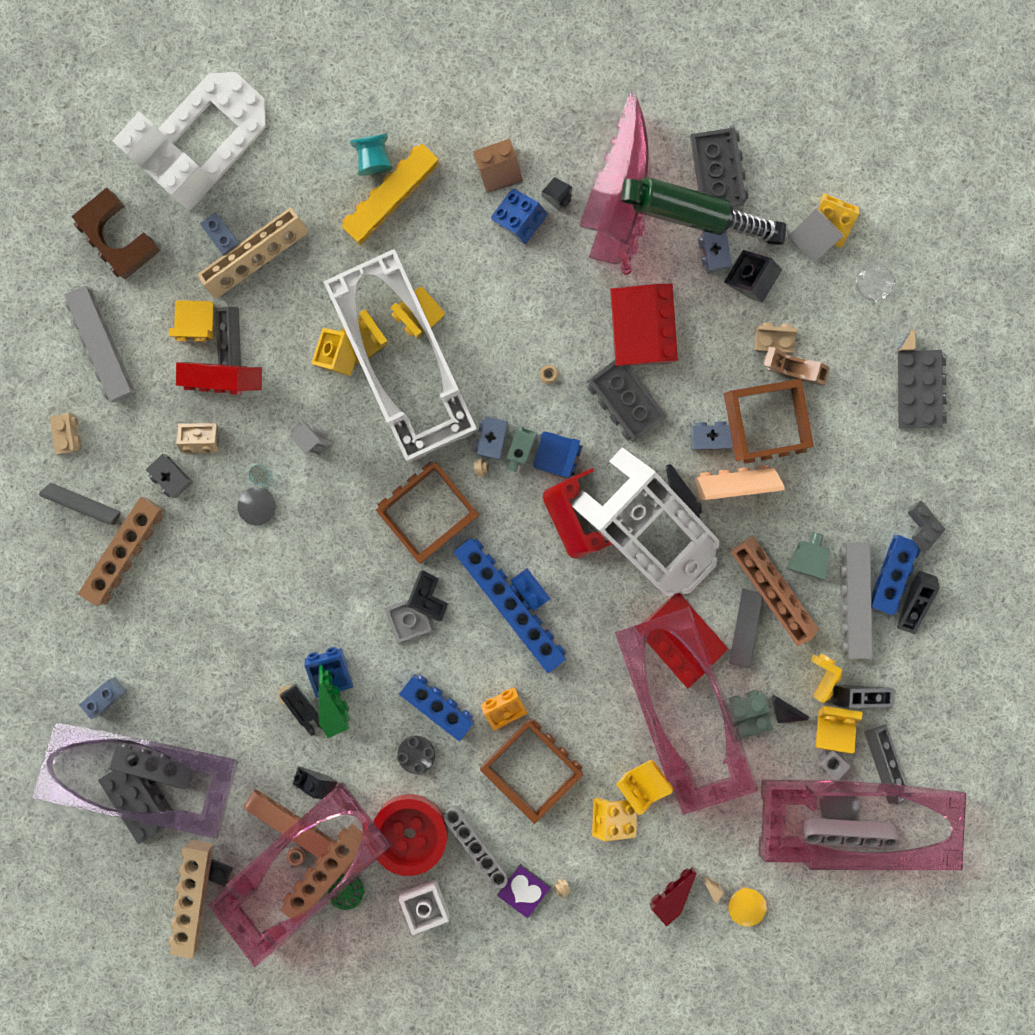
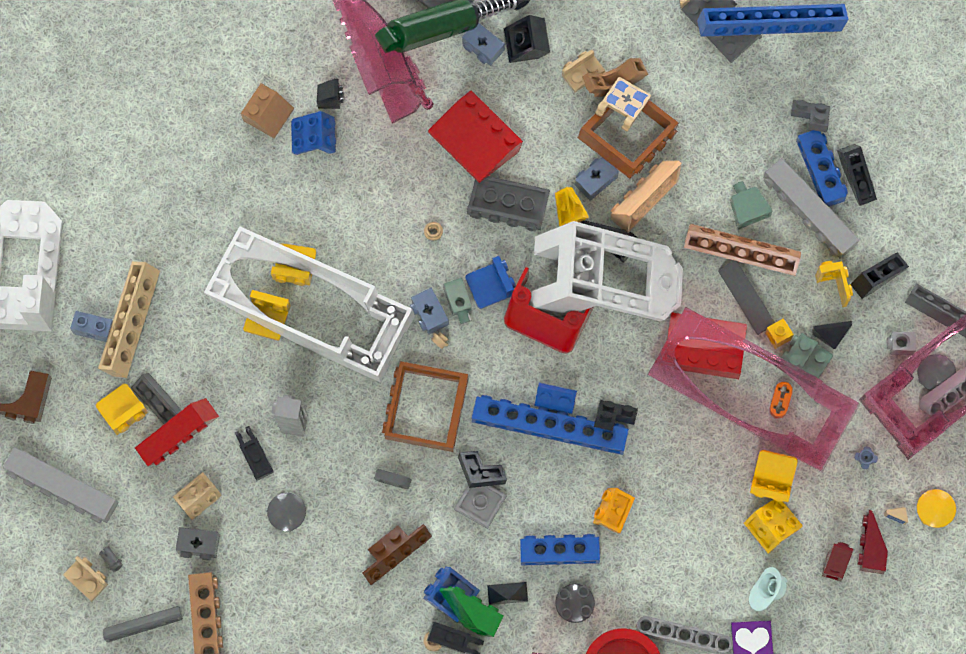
camera: 35 degrees left, 15 degrees down
(95, 434) = (110, 558): none -> dark grey pin
(258, 474) = (268, 486): clear light blue tile -> none
(266, 441) = (254, 455): none -> black hinge
(312, 601) = (394, 549): none -> reddish brown bracket
(334, 352) = (253, 344): yellow slope -> none
(356, 547) = (392, 479): none -> dark grey beam
(372, 154) = (164, 176): teal hat -> none
(372, 705) = (507, 593): none -> black slope
(390, 193) = (201, 195): yellow brick -> none
(510, 793) = (677, 570): dark orange window -> none
(562, 888) = (780, 612): tan plate -> none
(564, 633) = (610, 412): none -> black plate
(566, 865) = (768, 588): none -> light aqua piece
(636, 890) = (837, 561): none -> dark red slope
(669, 445) = (569, 207): none -> yellow wing
(705, 733) = (785, 401): none -> orange beam
(732, 830) = (872, 458): none -> sand blue plate
(745, 679) = (779, 333): none -> yellow brick
(787, 394) = (624, 99): none -> tan flag
(837, 729) = (880, 313): yellow bracket -> none
(962, 425) = (772, 20): none -> blue brick

